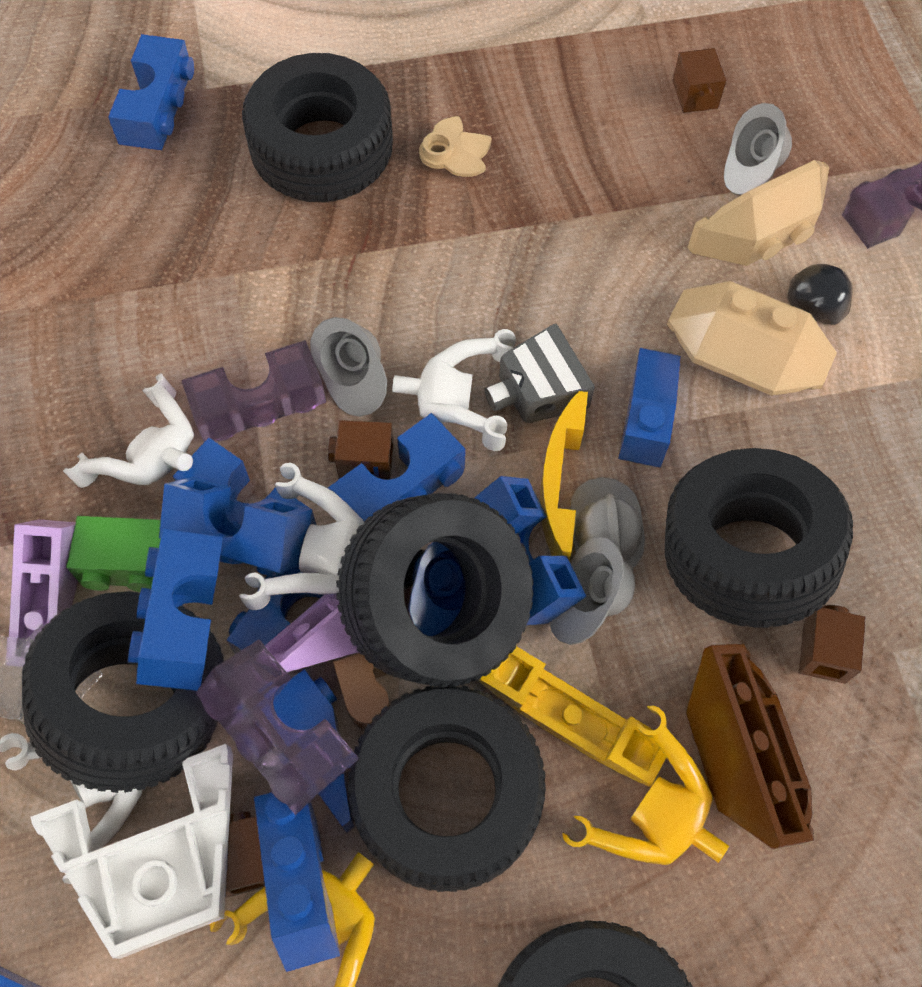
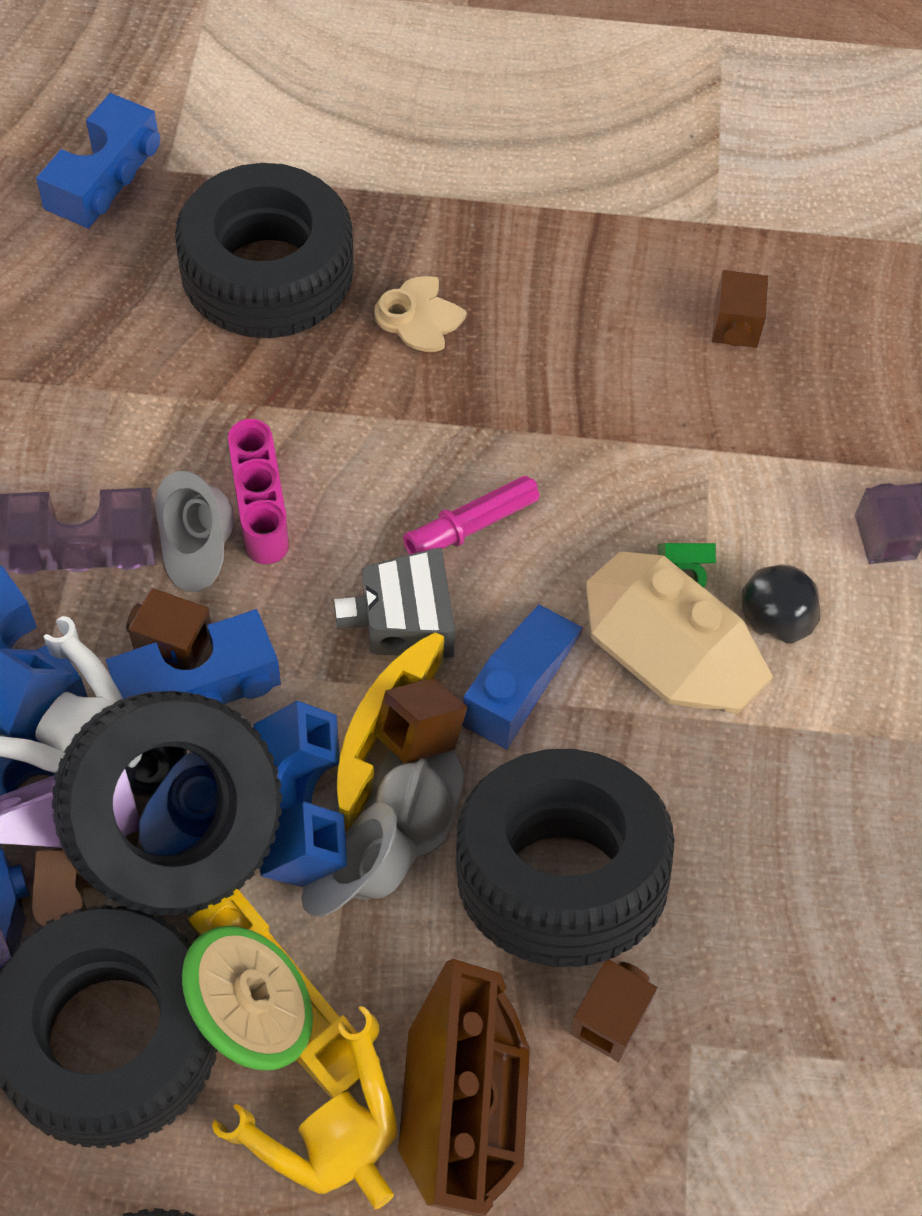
camera: 15 degrees right, 5 degrees down
(387, 303) = (258, 509): none -> dark pink beam
(447, 391) = (291, 592): white piece -> none
(552, 305) = (457, 524): none -> dark pink axle
(558, 728) = (247, 998): none -> tan wheel
(594, 463) = (420, 720): none -> reddish brown brick
(742, 276) = (690, 557): none -> green tile
(757, 148) = (775, 411): light grey piece -> none
(764, 218) = (748, 492): tan wedge -> none

